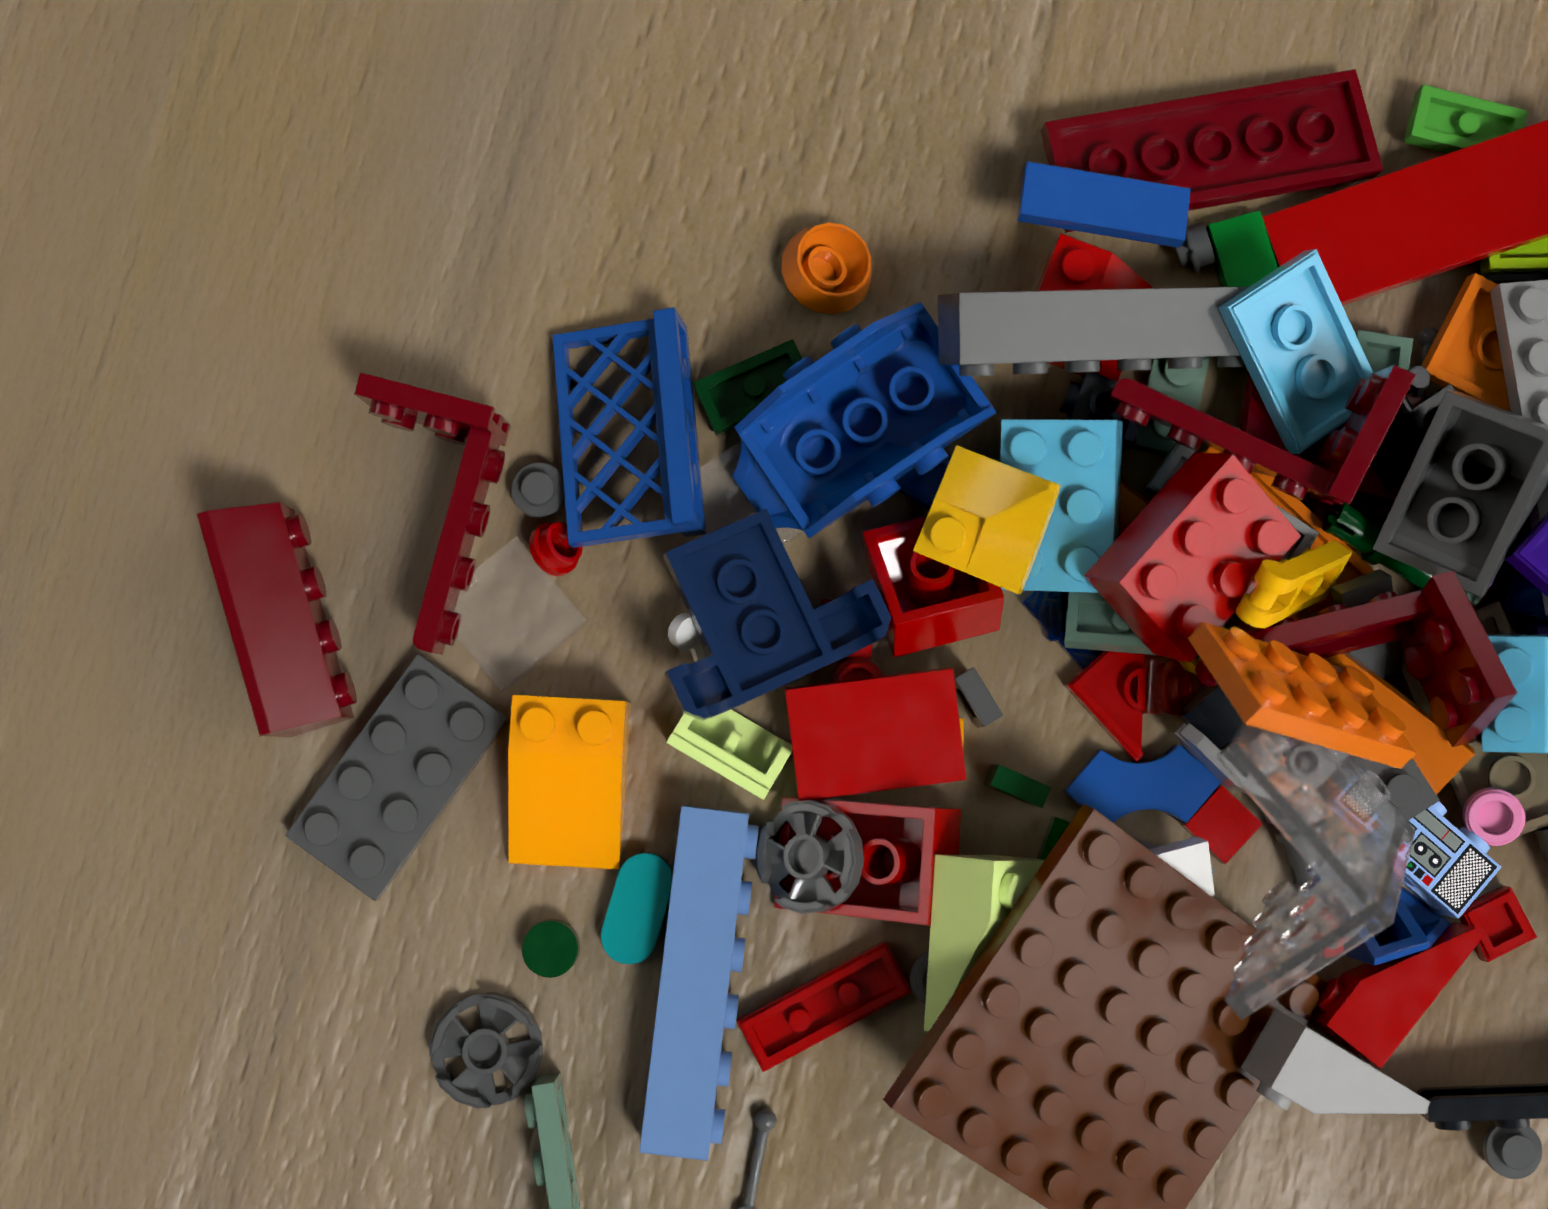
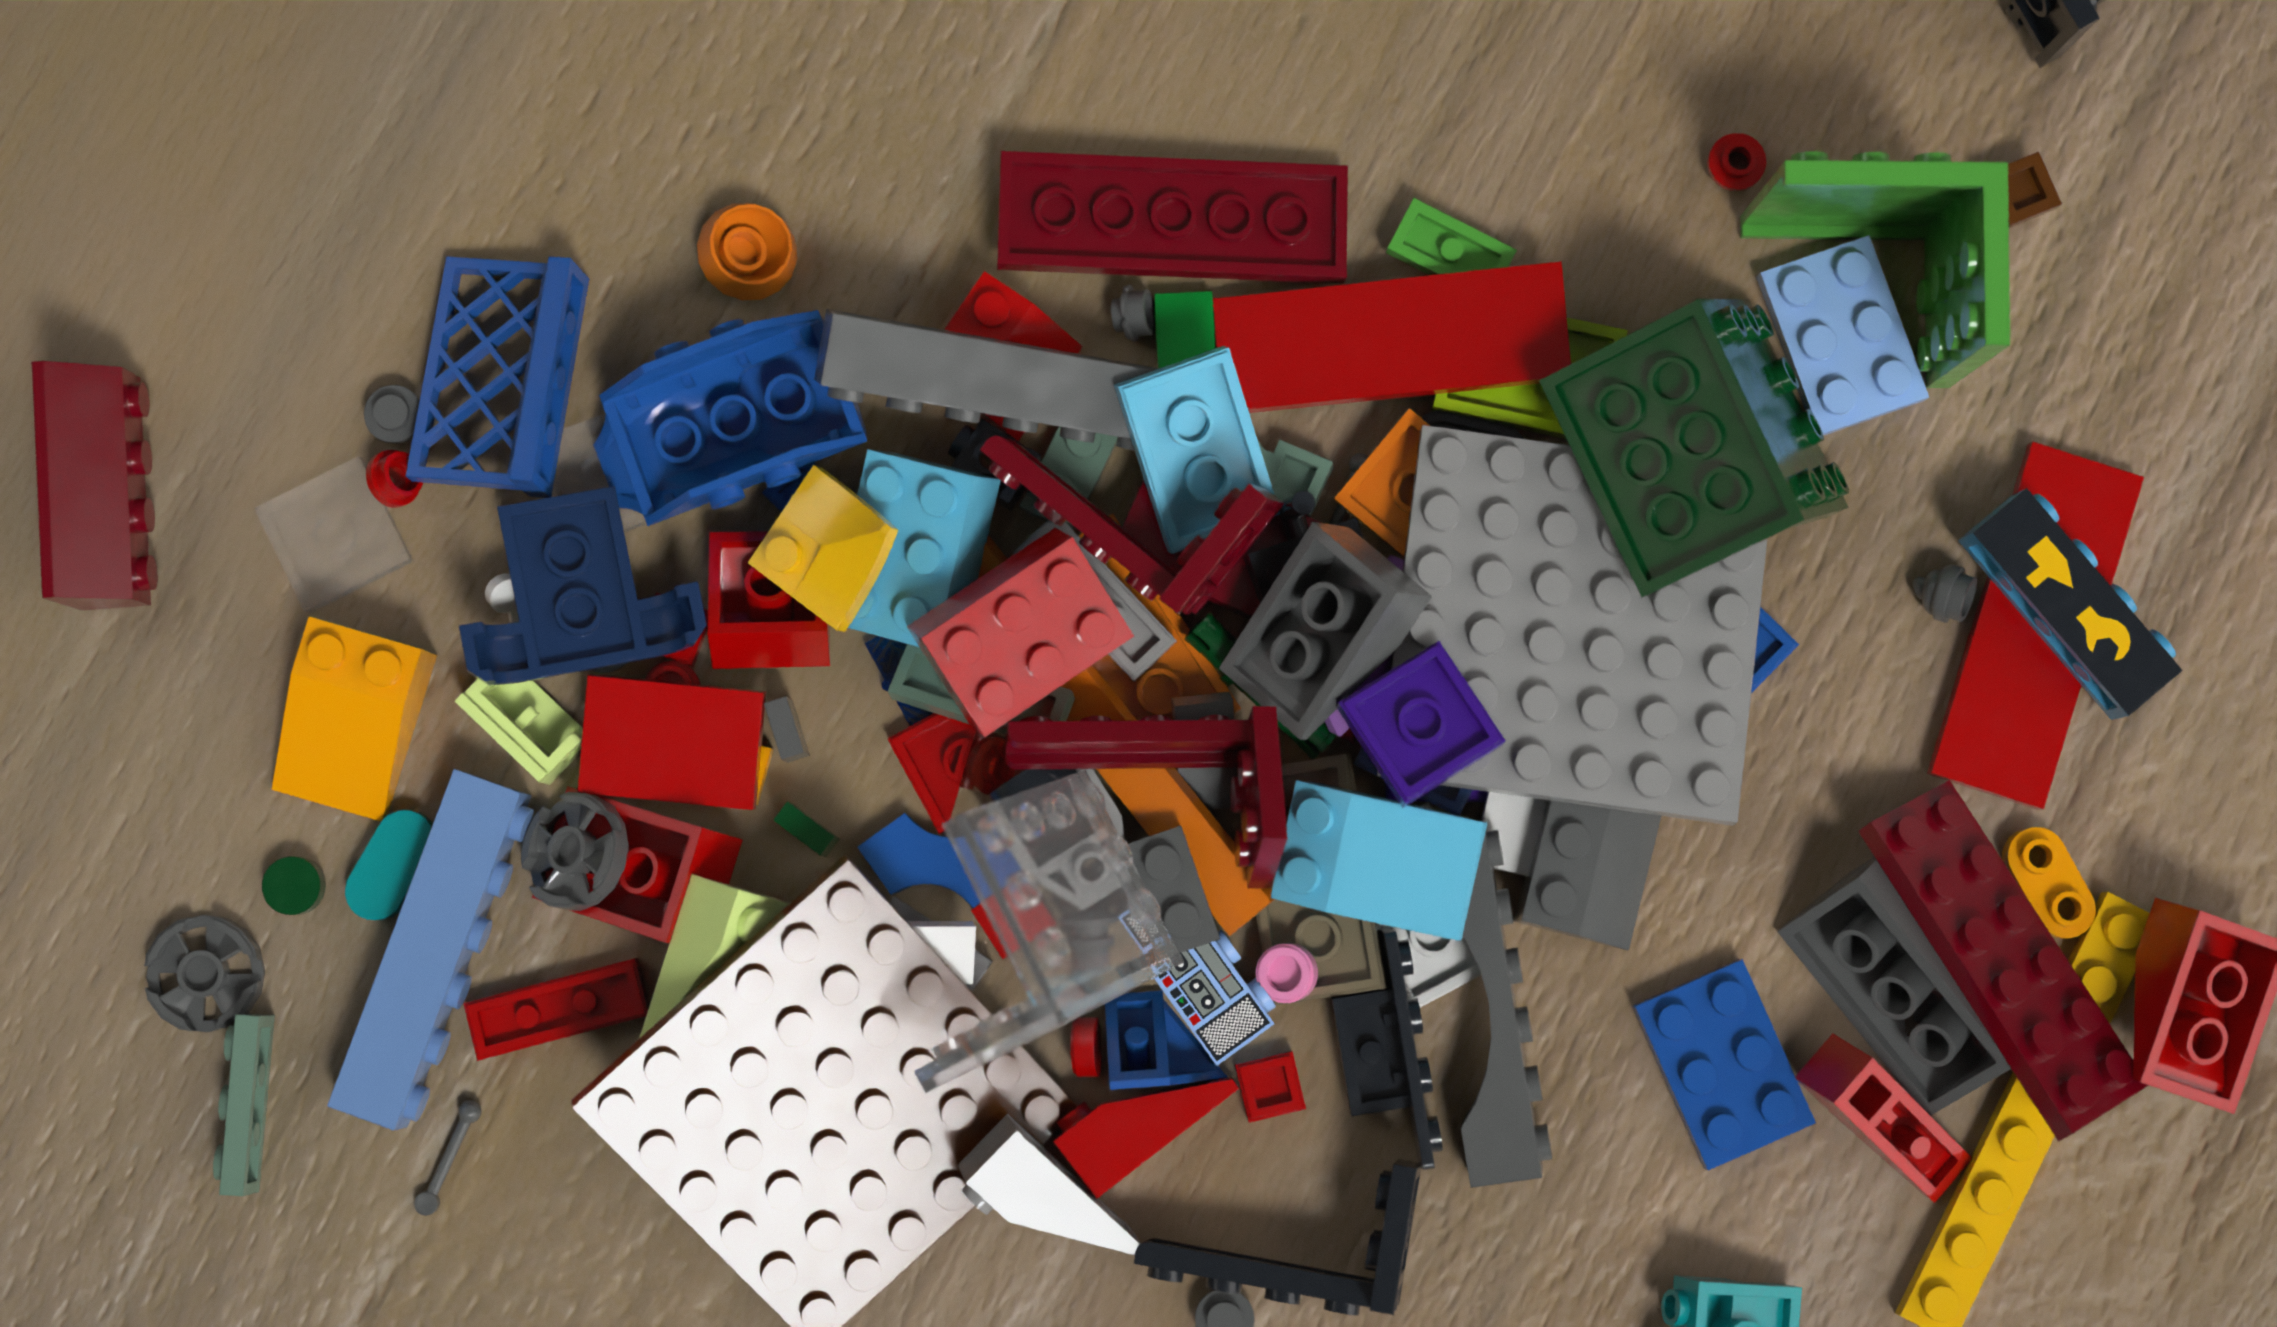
camera: 20 degrees right, 0 degrees up
(397, 777) = (179, 675): dark grey plate -> none
(467, 515) = (310, 415): dark red bracket -> none
(741, 387) = (615, 354): dark green plate -> none
(1103, 204) = (1033, 251): blue tile -> none
(1292, 584) = (1117, 683): yellow plate -> none
(1302, 696) = (1077, 794): orange plate -> none

